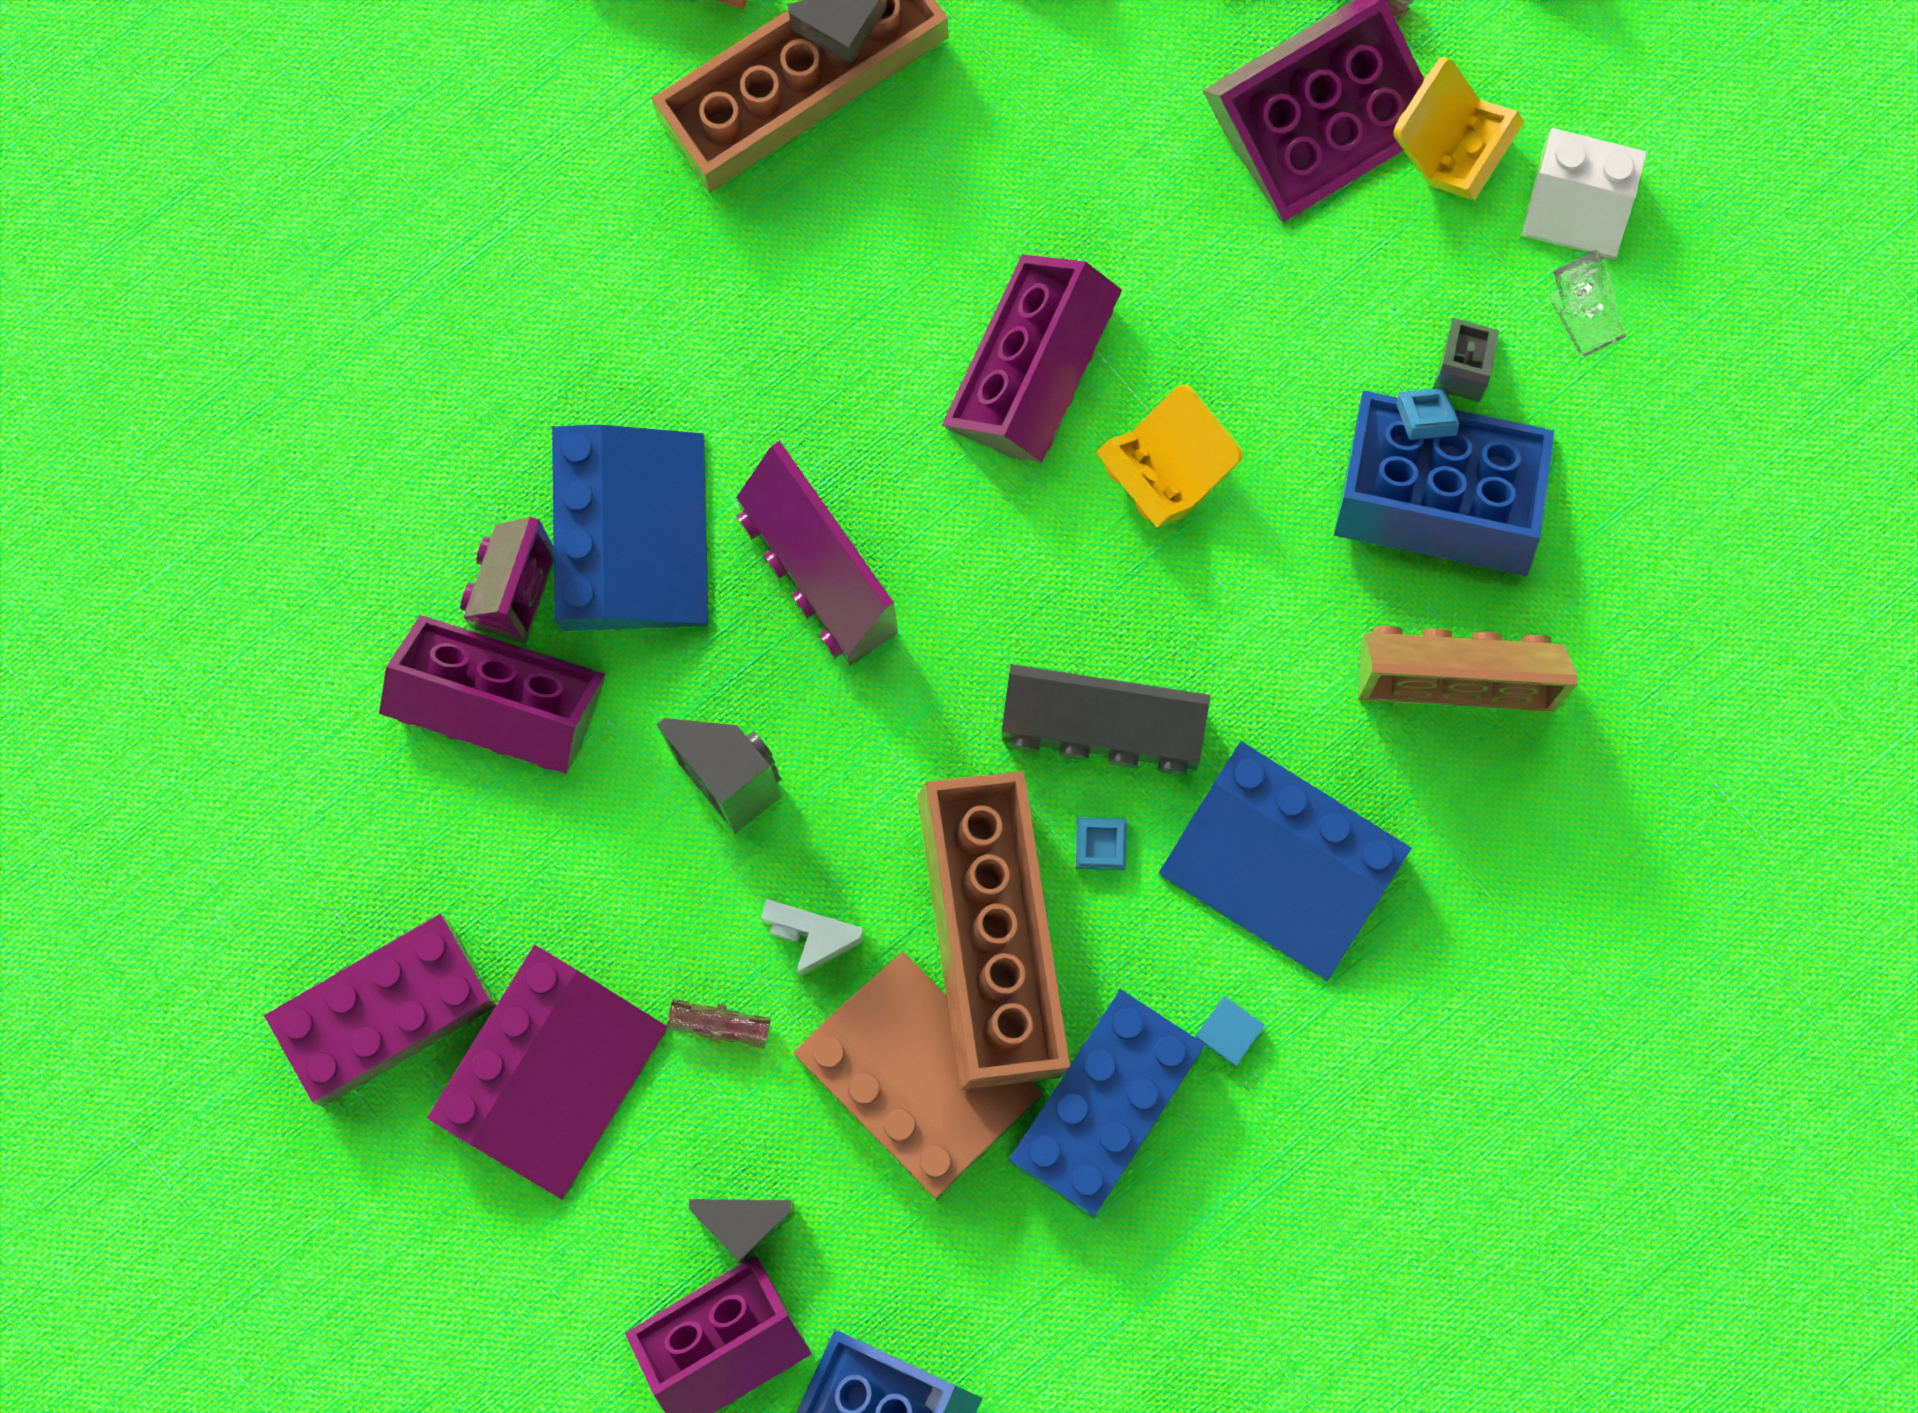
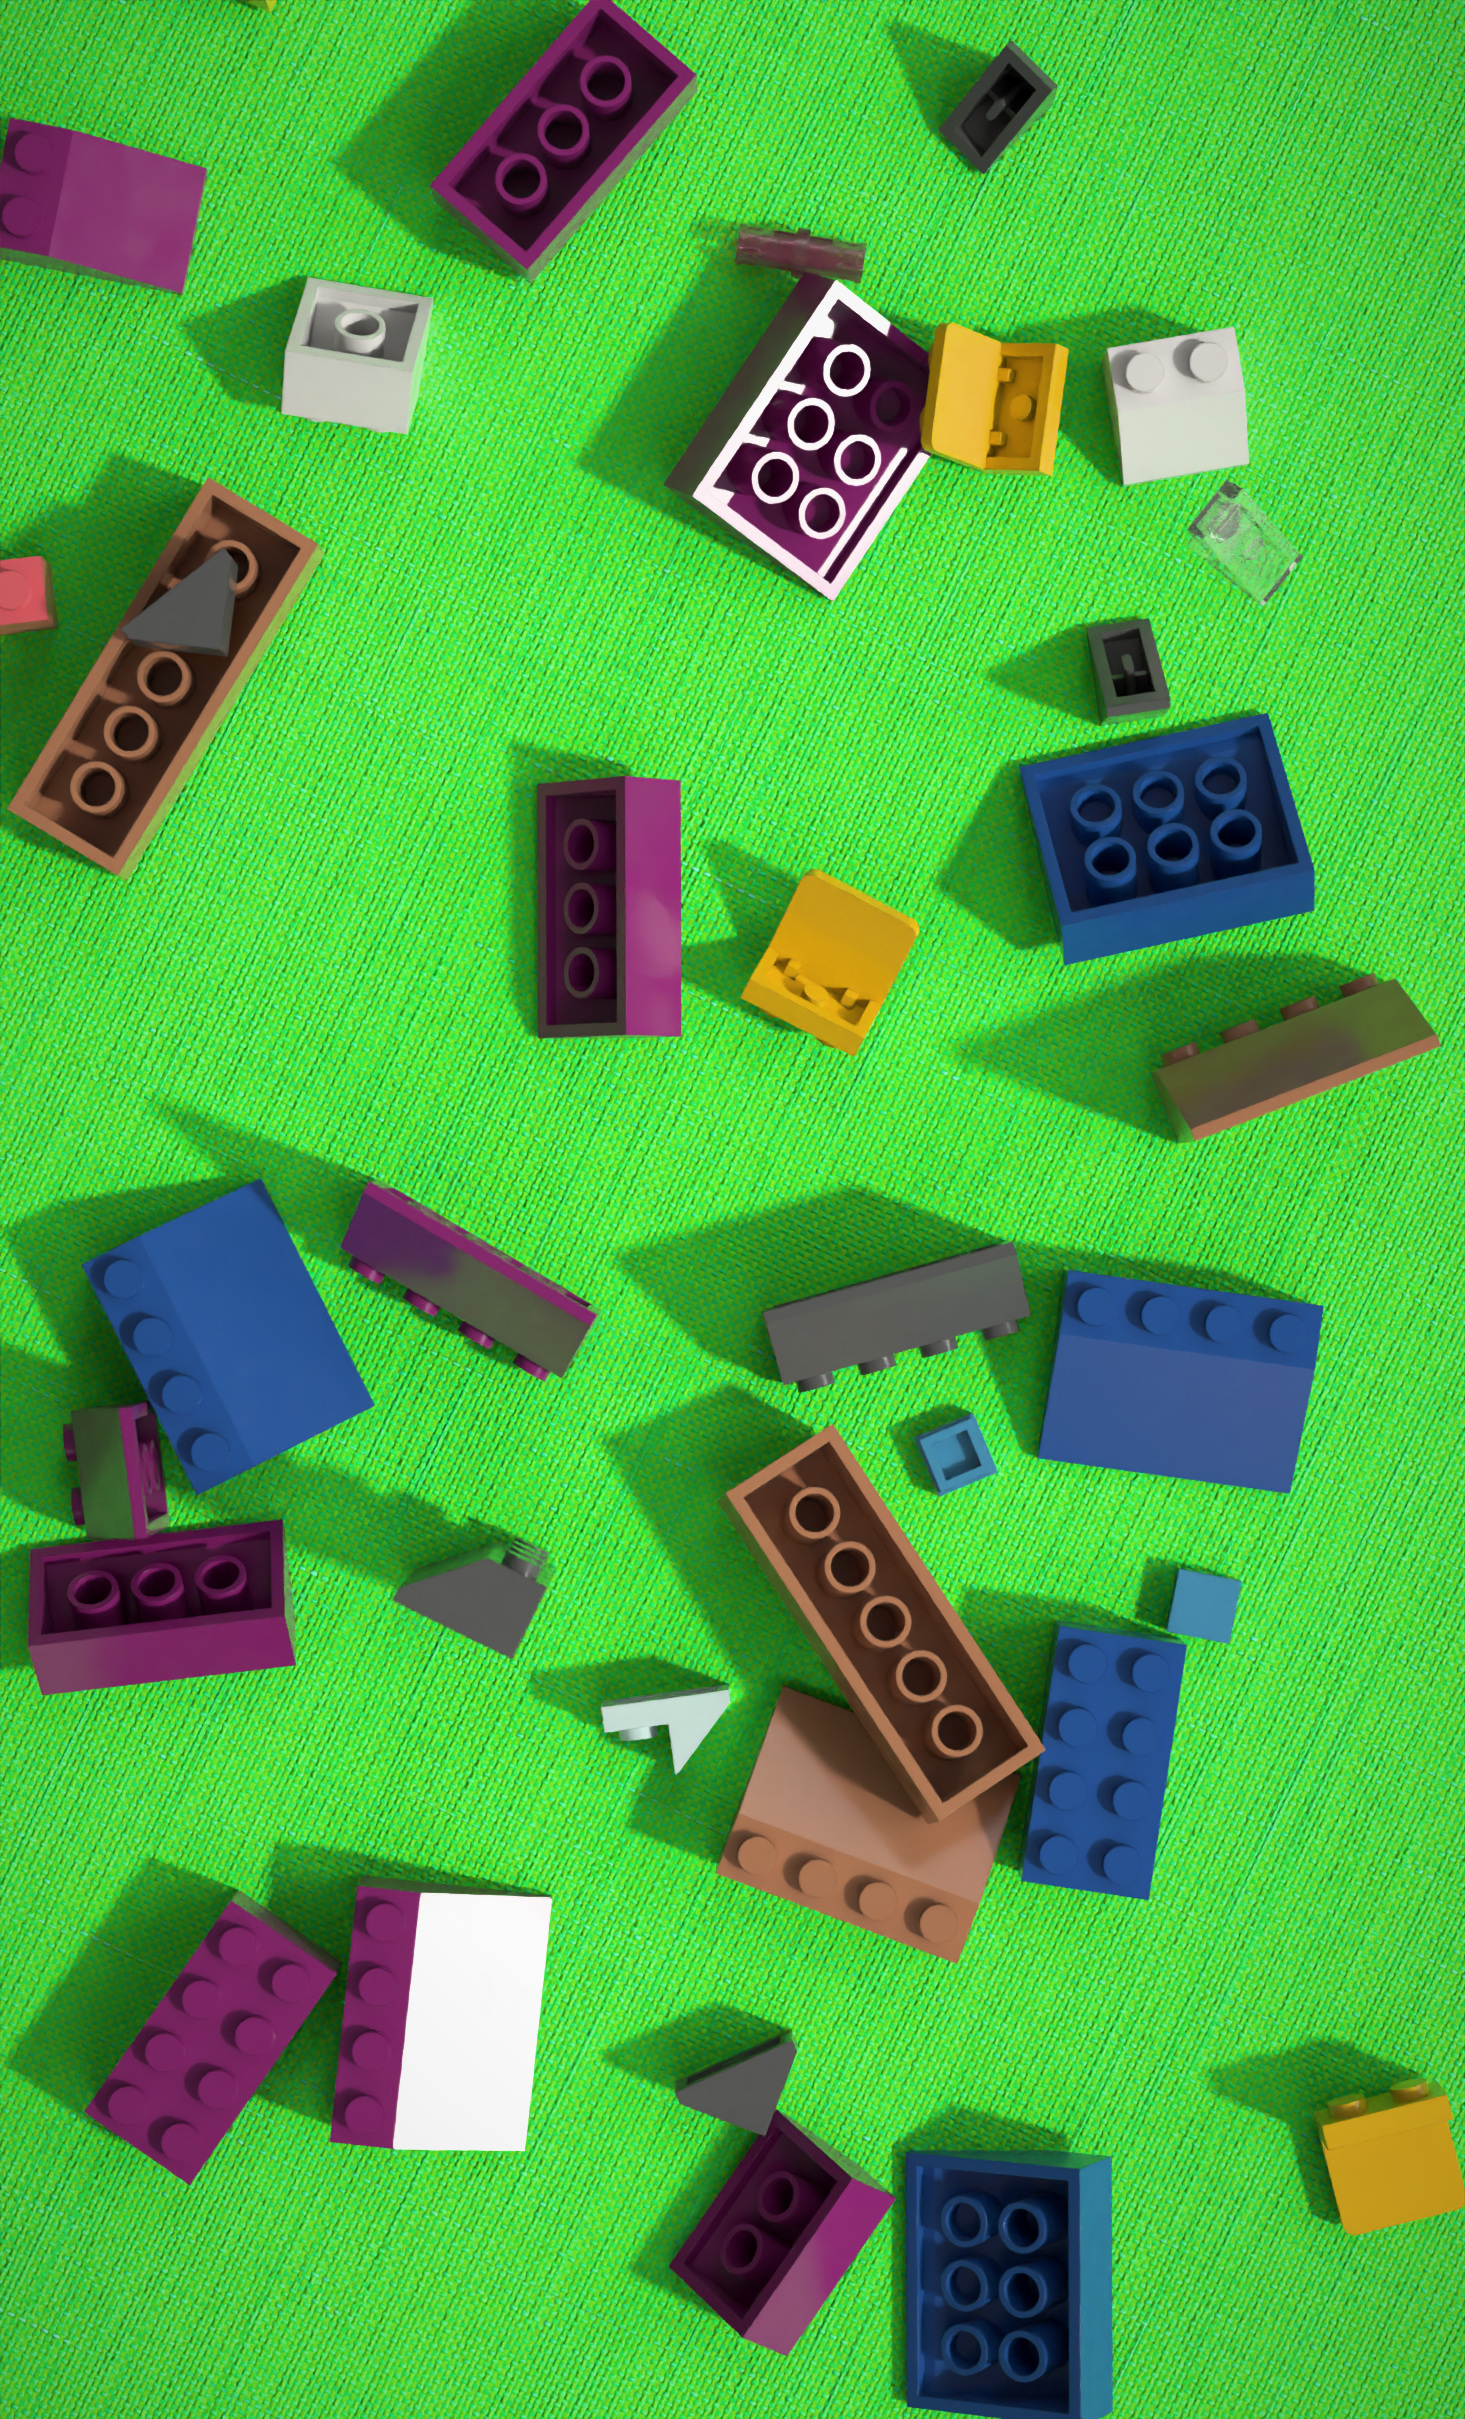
camera: 25 degrees left, 10 degrees up
(718, 1023) = (610, 1869): pin -> none
(1427, 413) = (1110, 765): dark azure tile -> none

